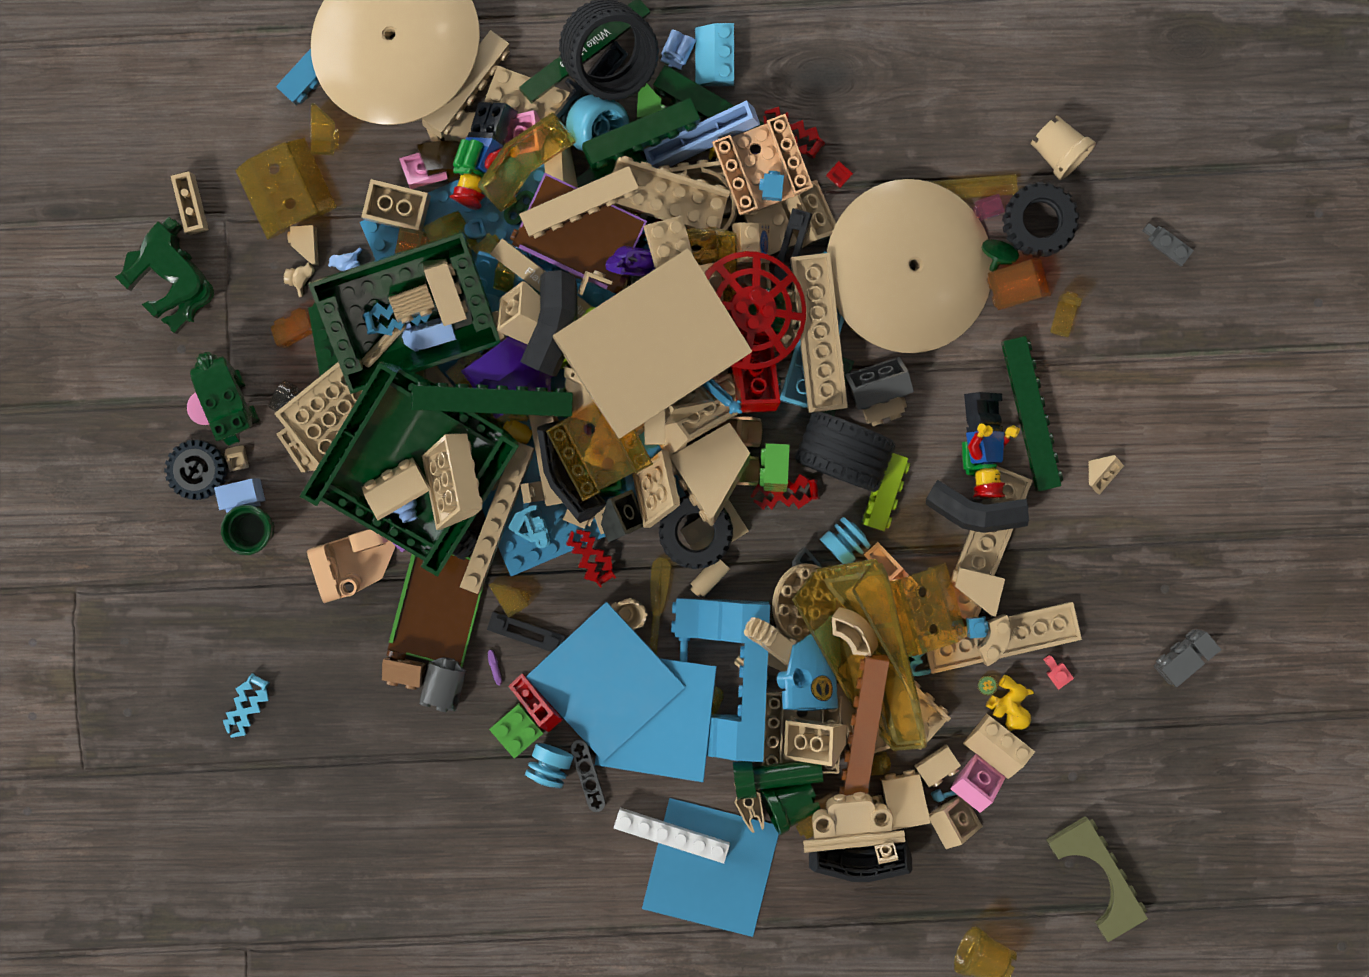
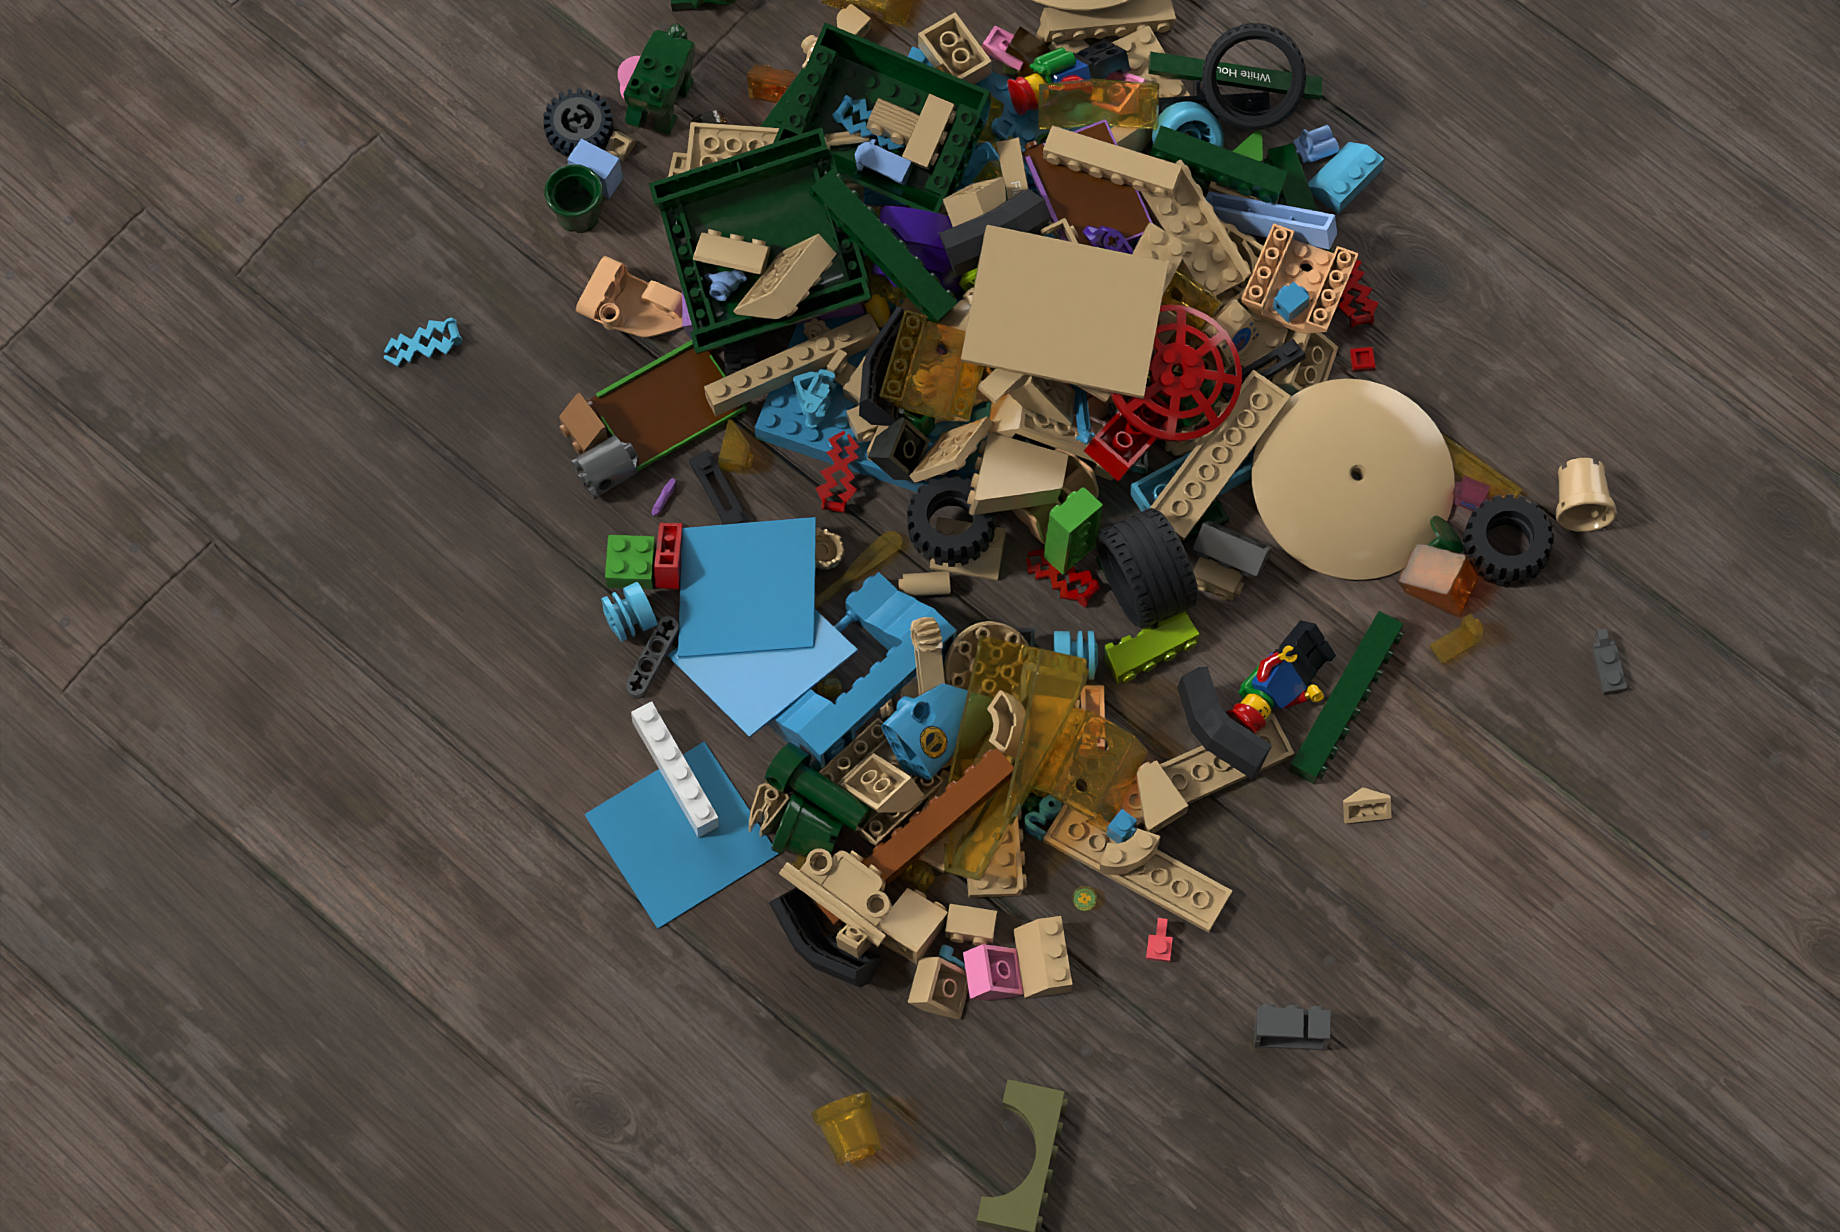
camera: 45 degrees right, 20 degrees down
(1017, 716) = (1086, 944): yellow animal -> none

